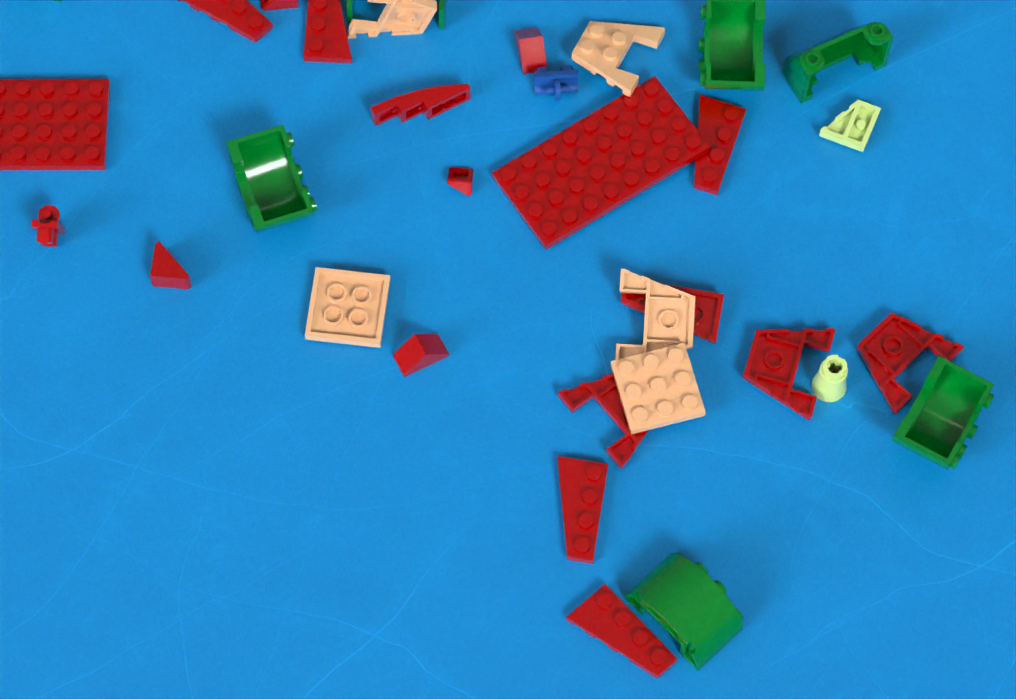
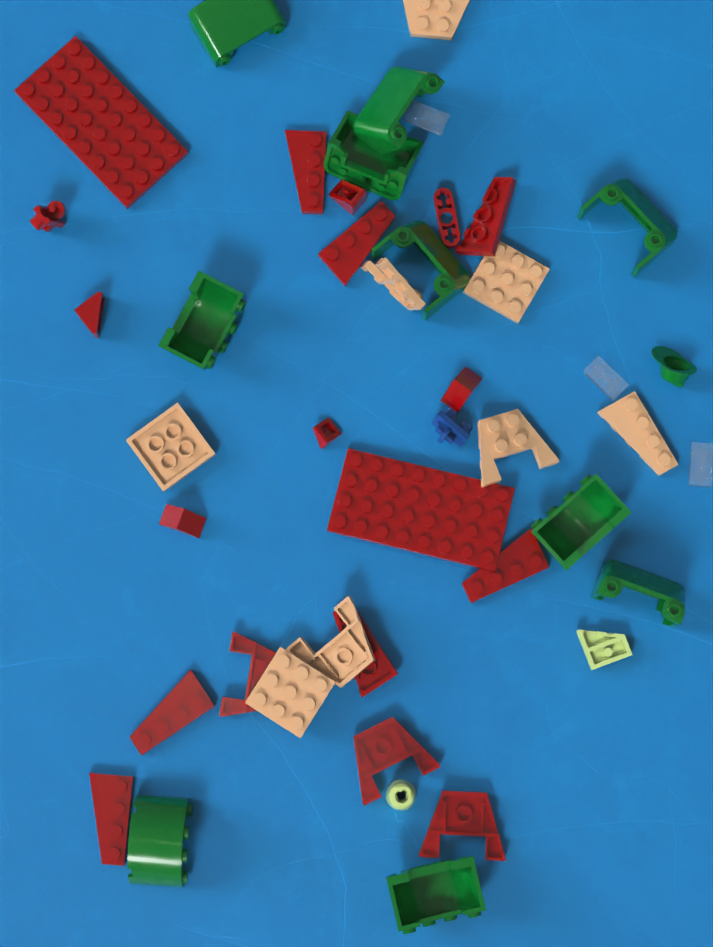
camera: 50 degrees right, 15 degrees up
(427, 101) = (360, 363): red slope -> none

